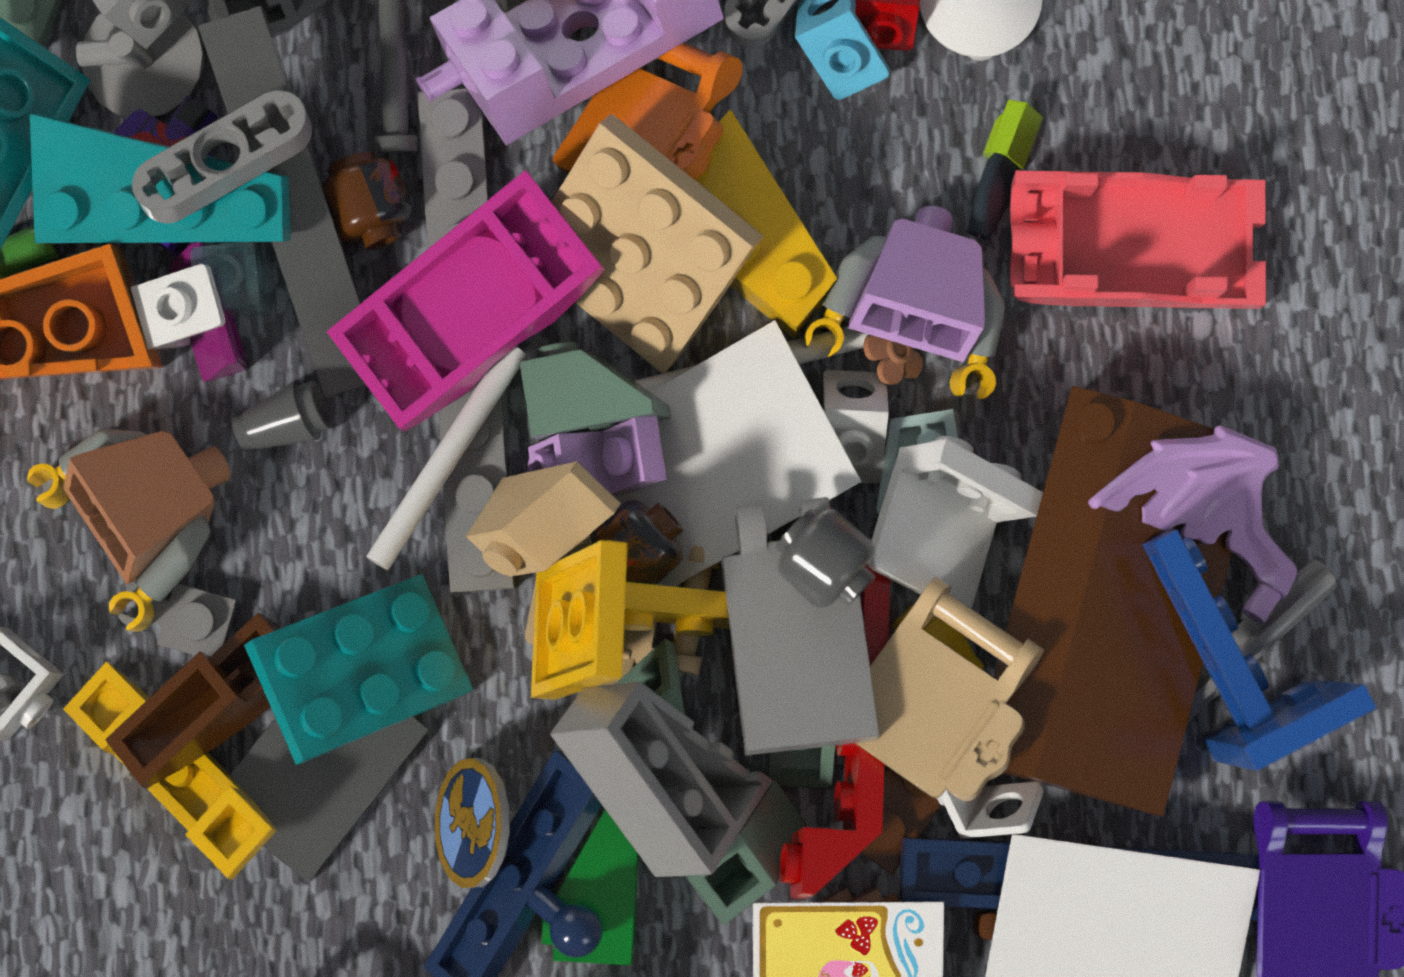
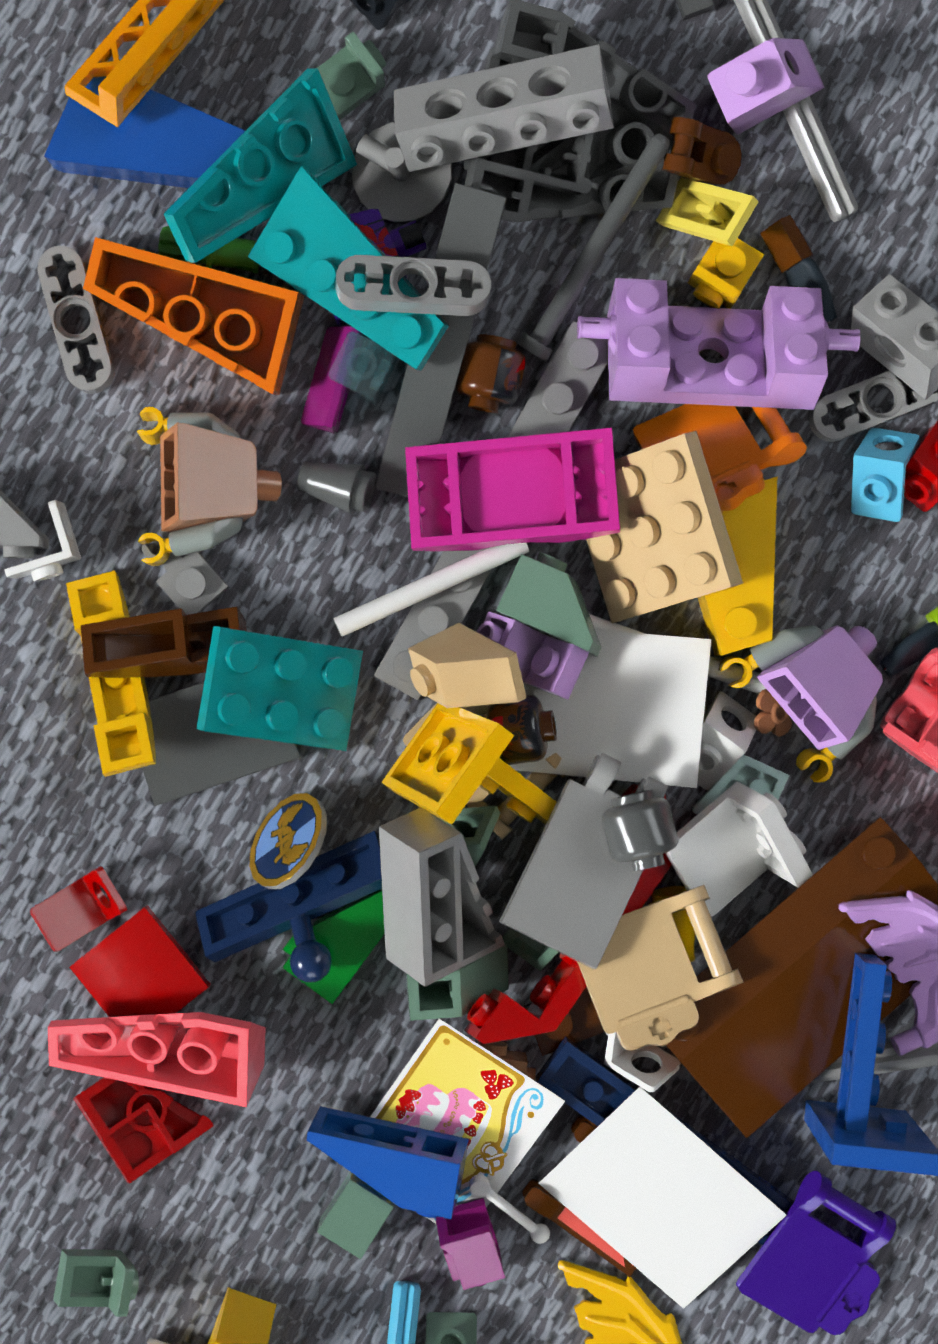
camera: 30 degrees right, 5 degrees up
(178, 307) = (316, 365): white bracket -> none

